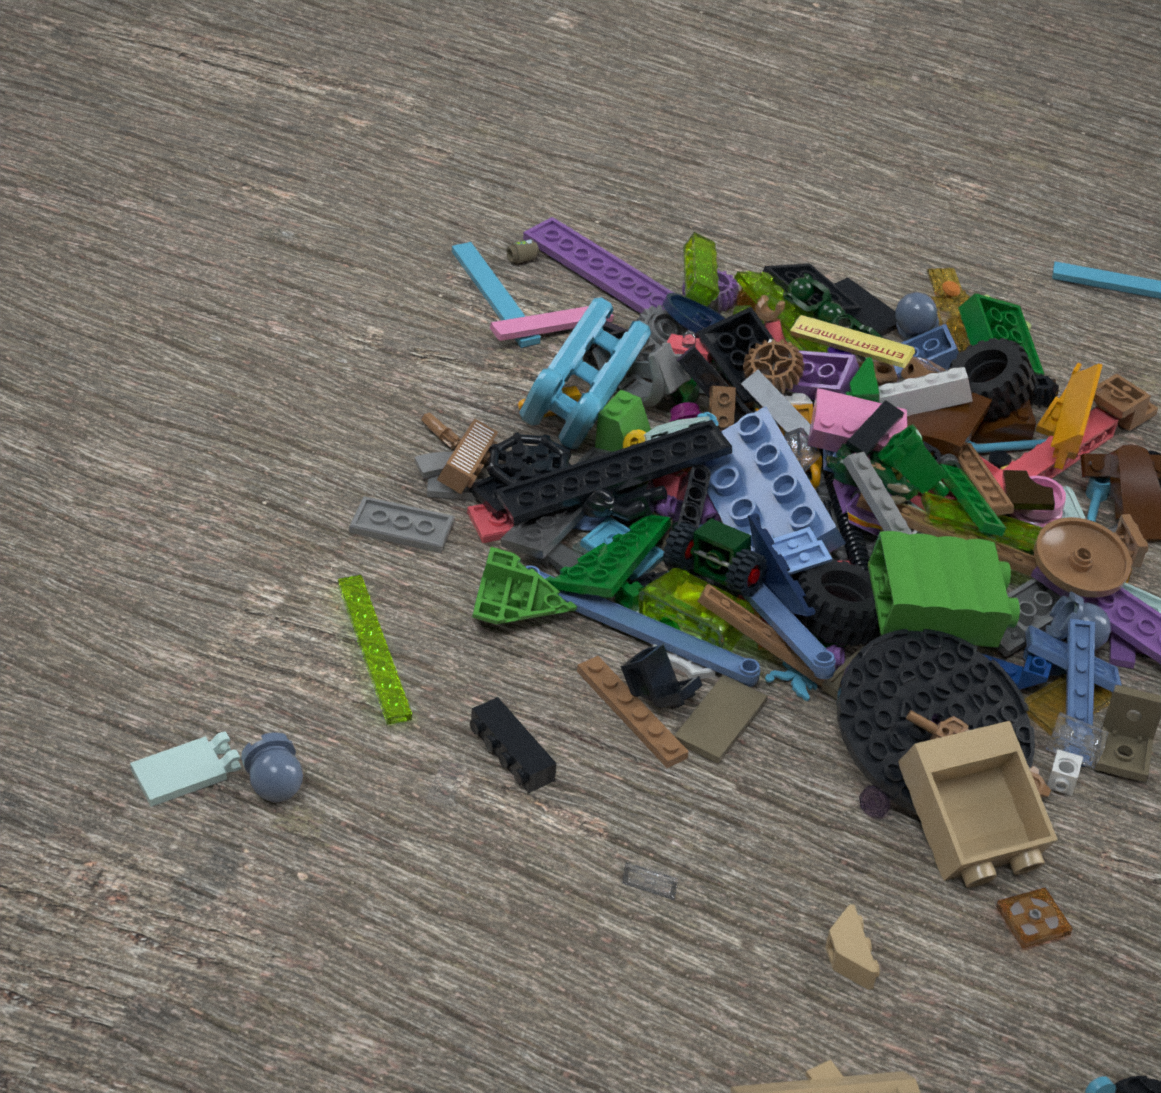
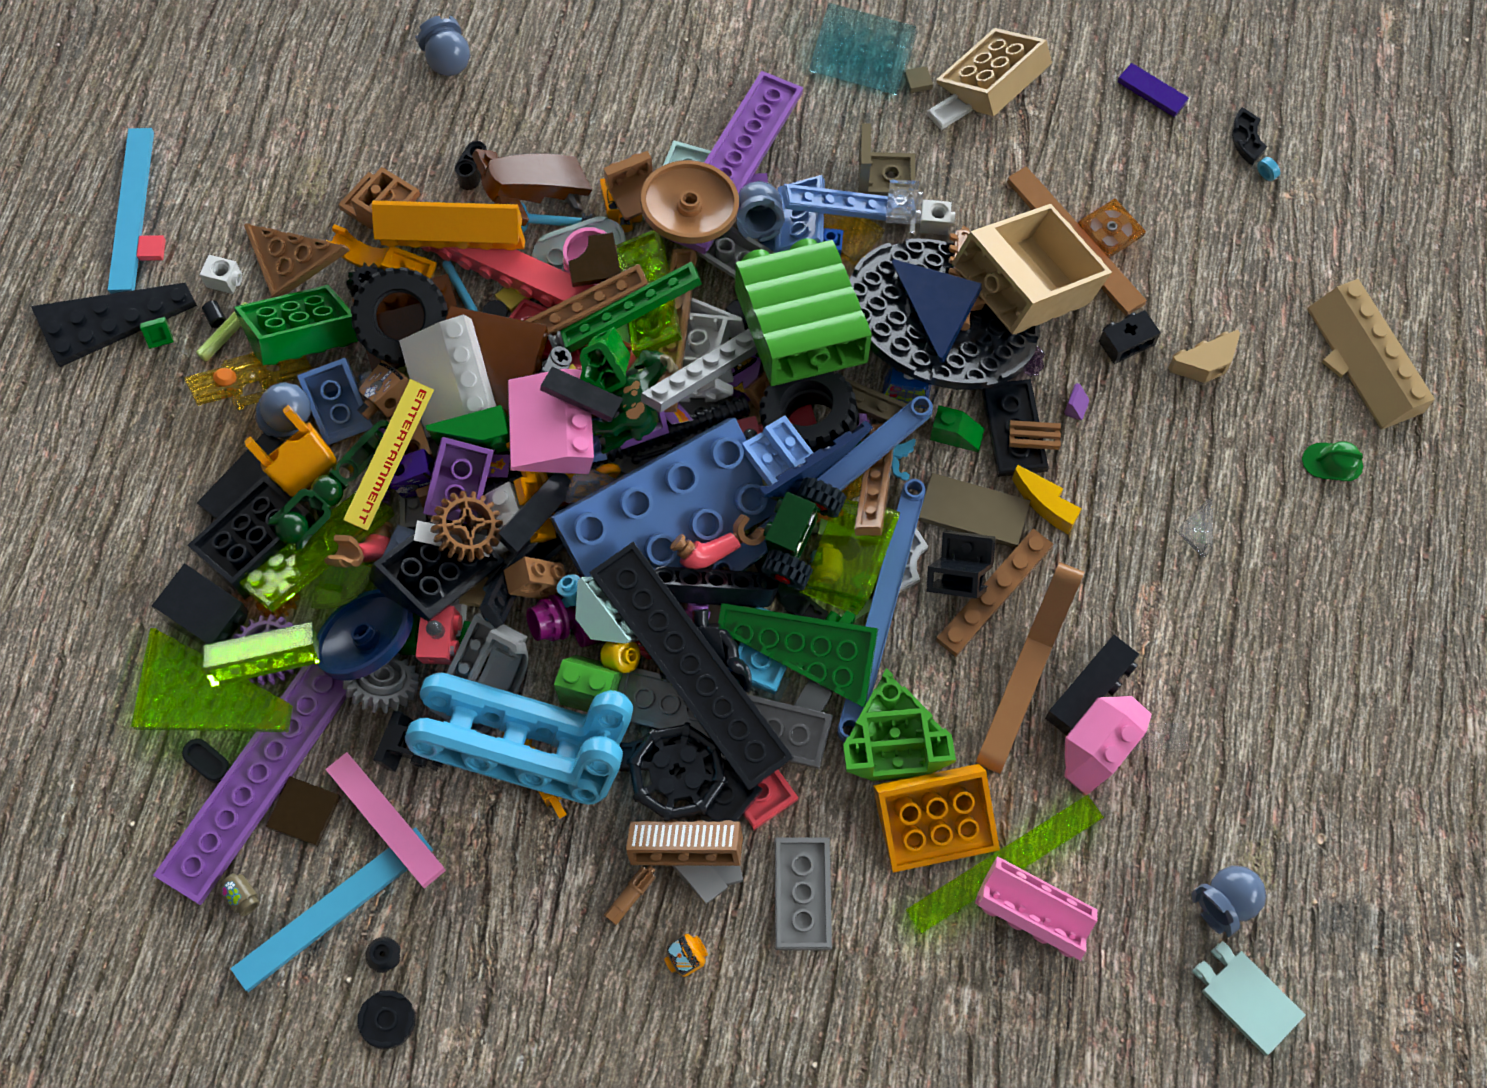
camera: 100 degrees left, 25 degrees up
(321, 638) = (1037, 908): none -> bright pink brick
(380, 446) = (686, 955): none -> head
(402, 304) = (386, 1019): none -> black tile
(433, 610) = (937, 817): none -> light orange slope
(450, 308) = (389, 960): none -> black plate
(461, 734) = (1103, 740): none -> bright pink wedge
(535, 698) = (1029, 667): none -> medium nougat beam
(574, 291) = (303, 811): none -> dark brown tile
(634, 254) = (205, 760): none -> black tile
(667, 258) = (179, 696): none -> clear neon green wing
(700, 1028) = (1333, 461): none -> green piece
(714, 501) = (701, 555): none -> piece
(715, 767) = (1046, 499): none -> yellow slope
(753, 252) = (200, 608): none -> black slope
(802, 763) = (1034, 430): none -> medium nougat tile
(804, 773) = (1012, 402): none -> black tile
(810, 722) = (956, 429): none -> green slope
(821, 824) = (1077, 403): none -> medium lavender slope
(864, 307) = (296, 460): none -> light orange piece
(890, 887) = (1129, 336): none -> black brick
(939, 702) = (939, 302): none -> dark blue tile
(1009, 278) = (156, 332): none -> green tile
(1027, 308) = (213, 314): none -> black hinge
(1028, 258) = (92, 323): none -> black wing
(1054, 877) = (1117, 286): none -> medium nougat tile
(1060, 316) = (213, 271): none -> white brick
(1072, 351) = (289, 257): none -> medium nougat tile
(1094, 289) = (151, 248): none -> coral tile

